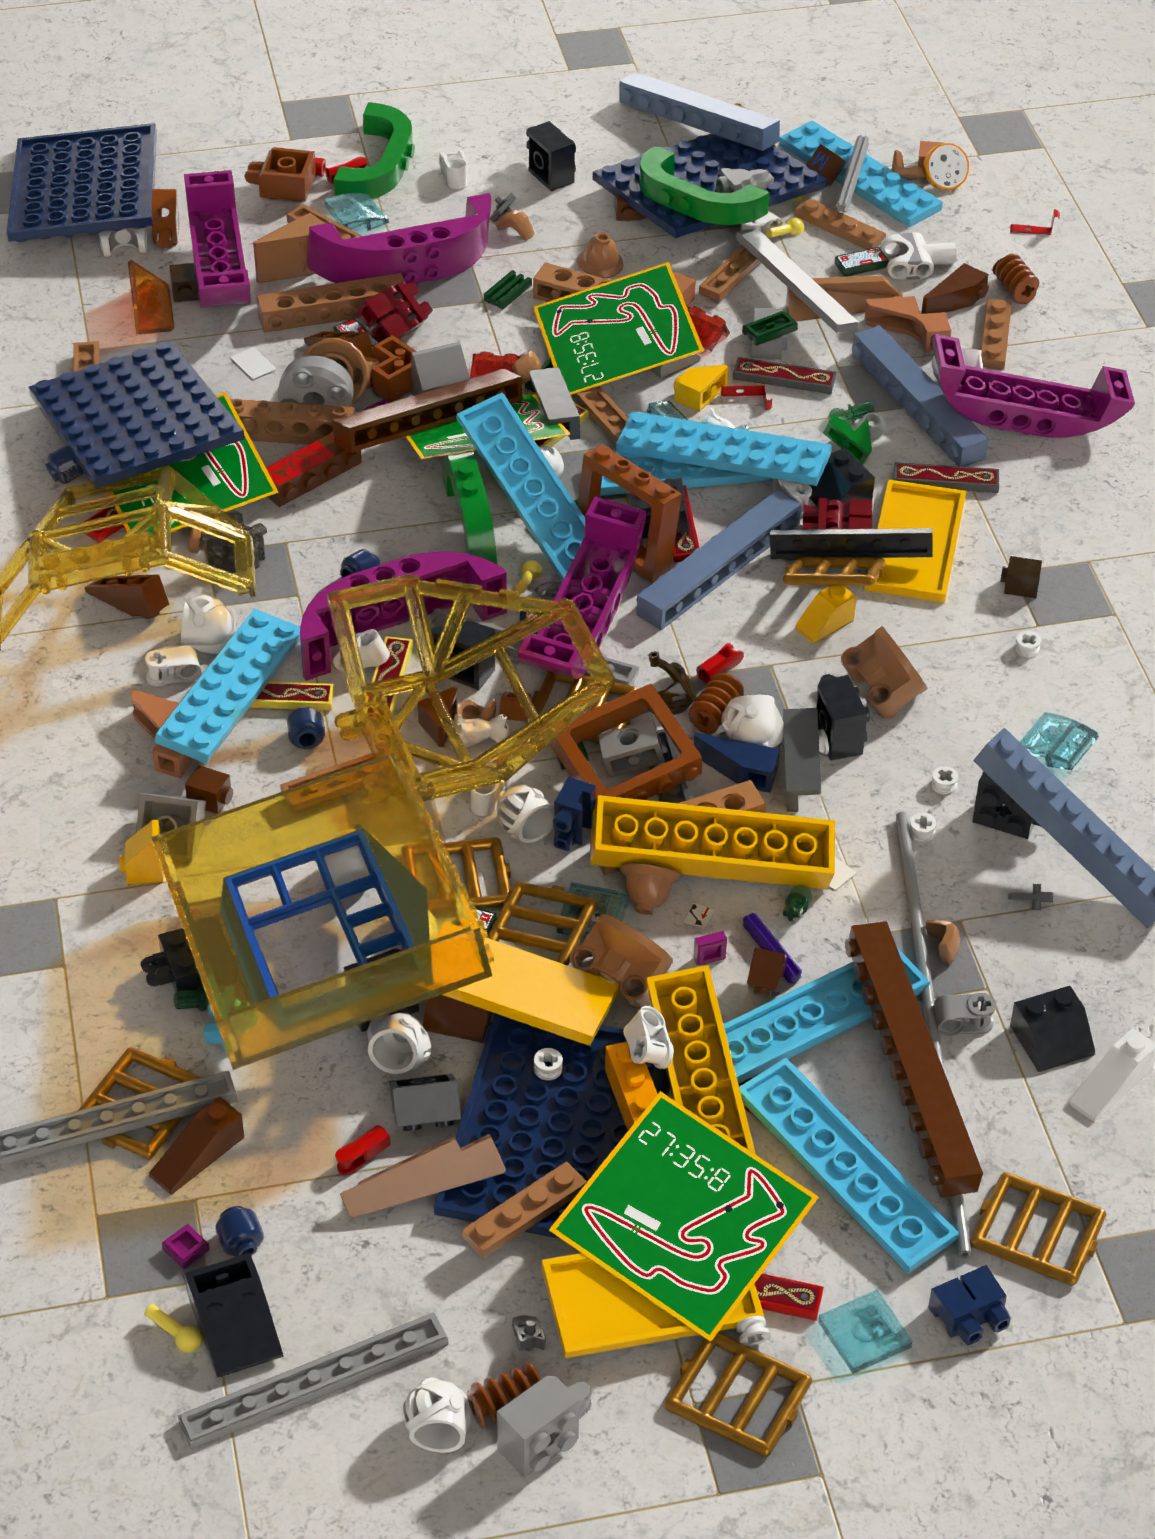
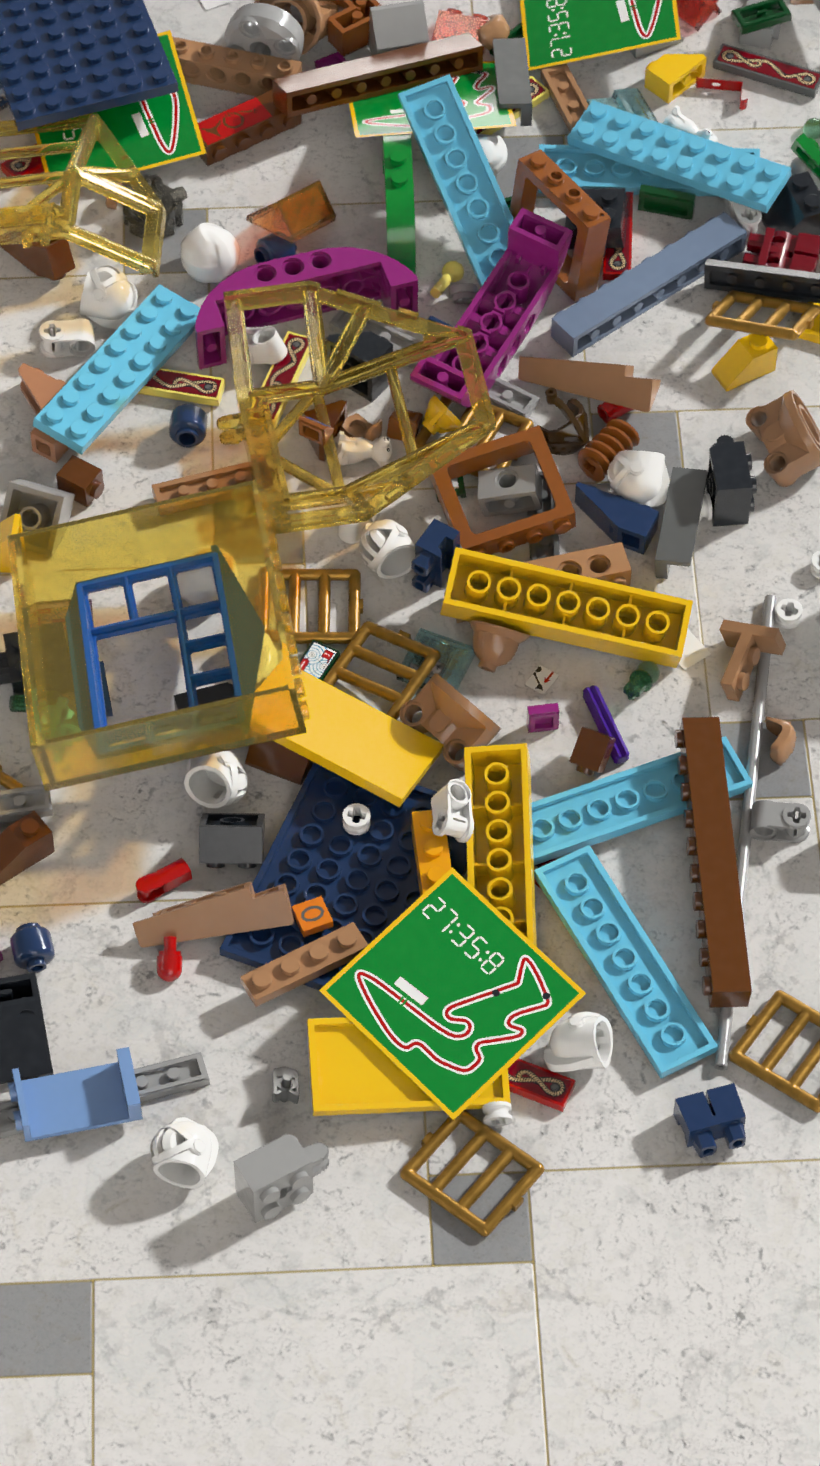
camera: 10 degrees right, 10 degrees up
(297, 577) = (209, 253): none -> white piece
(315, 1376) = (76, 1099): none -> medium blue panel
(374, 532) = (296, 213): none -> clear orange slope
(383, 1226) = (169, 961): none -> red cylinder
(434, 712) = (314, 430): none -> dark orange slope
(496, 1394) = (245, 1142): dark orange piece -> none
(523, 1162) = (312, 916): none -> orange tile
(549, 690) = (440, 418): none -> yellow piece
(687, 643) = (593, 380): none -> medium nougat wedge
(719, 489) = (666, 202): none -> dark green tile
(821, 1248) = (576, 1041): none -> white helmet
(865, 1331) = (606, 1129): clear light blue tile -> none
(894, 855) = (748, 643): none -> medium nougat bracket

